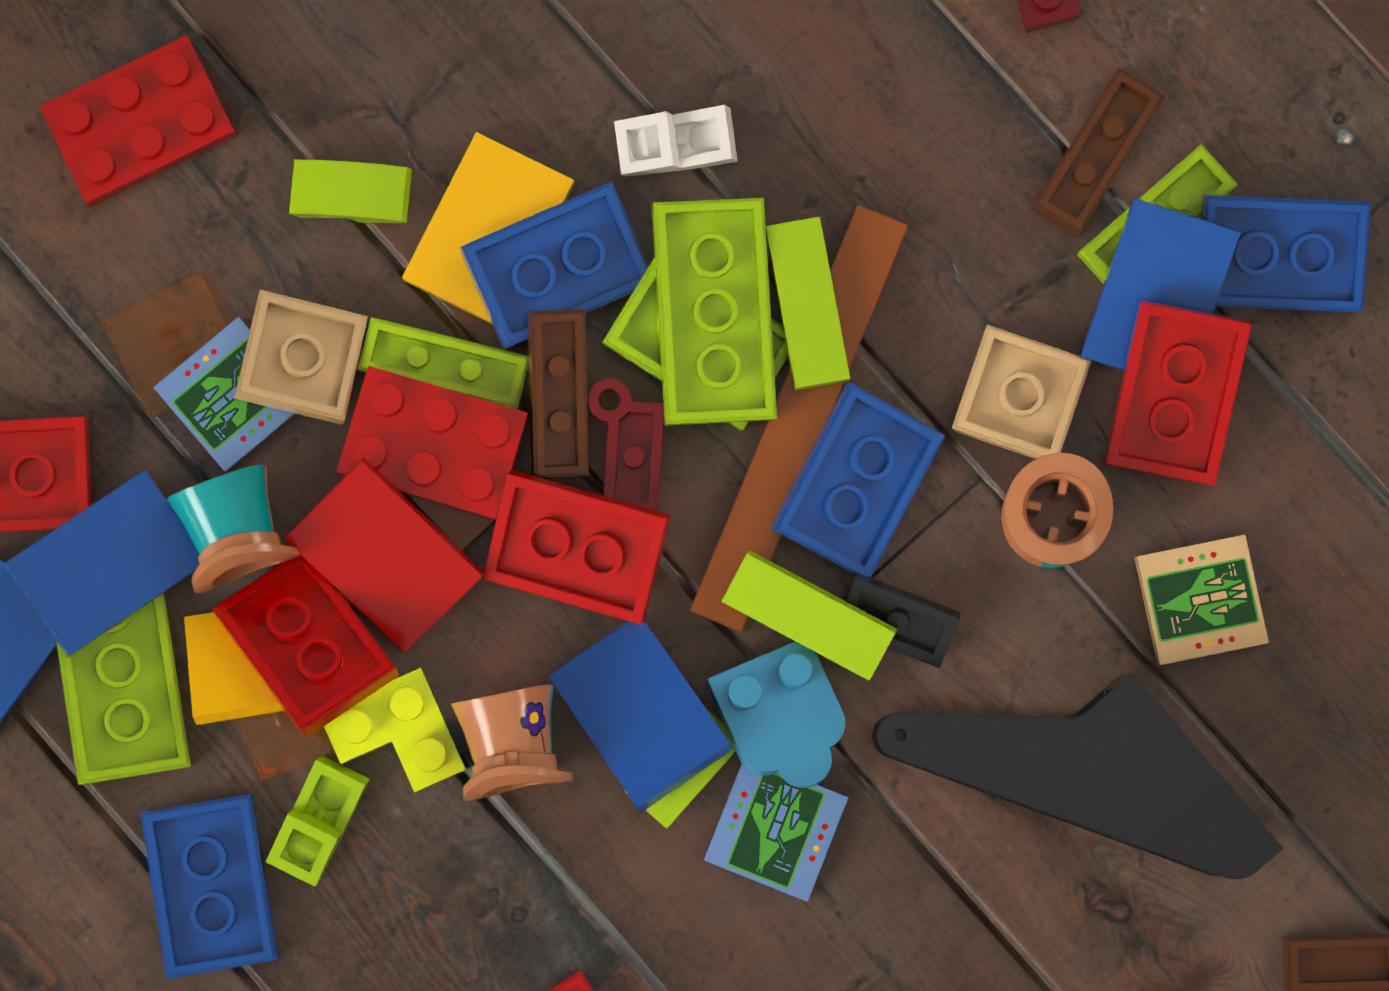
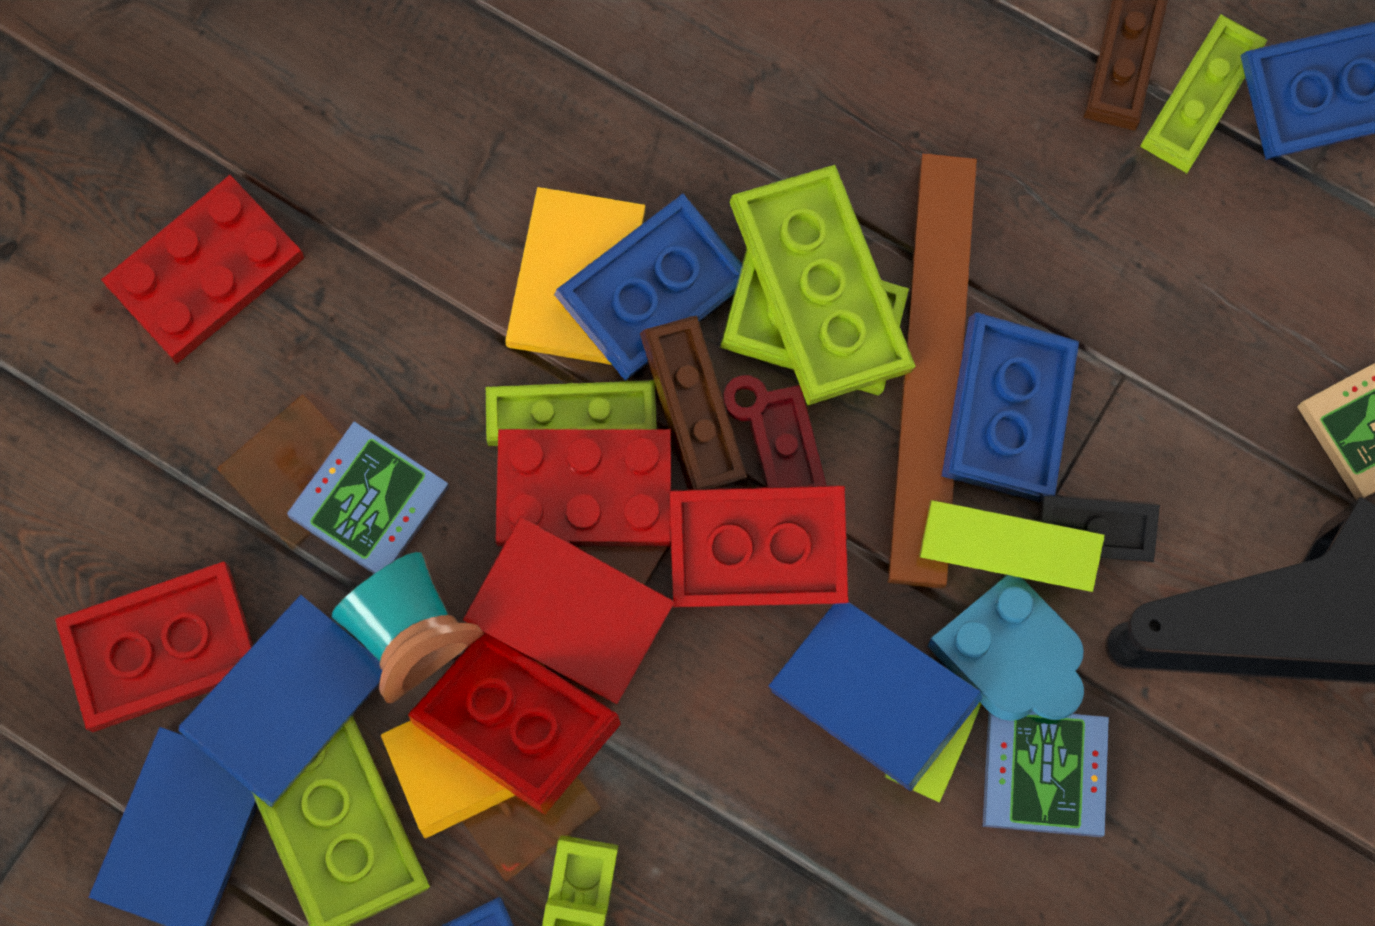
camera: 20 degrees left, 10 degrees down
(301, 357) = (427, 443): tan tile -> none
(350, 191) = (430, 273): lime slope -> none
(407, 718) = (637, 770): neon yellow plate -> none
(510, 741) = (753, 757): nougat hat -> none
(675, 141) = (730, 148): white slope -> none
(807, 303) = (908, 254): lime tile -> none
(1020, 394) = (1136, 285): tan tile -> none
(1057, 510) = (1216, 375): nougat hat -> none
(1160, 260) = (1236, 151): blue tile -> none
(1177, 392) = (1287, 234): red plate -> none

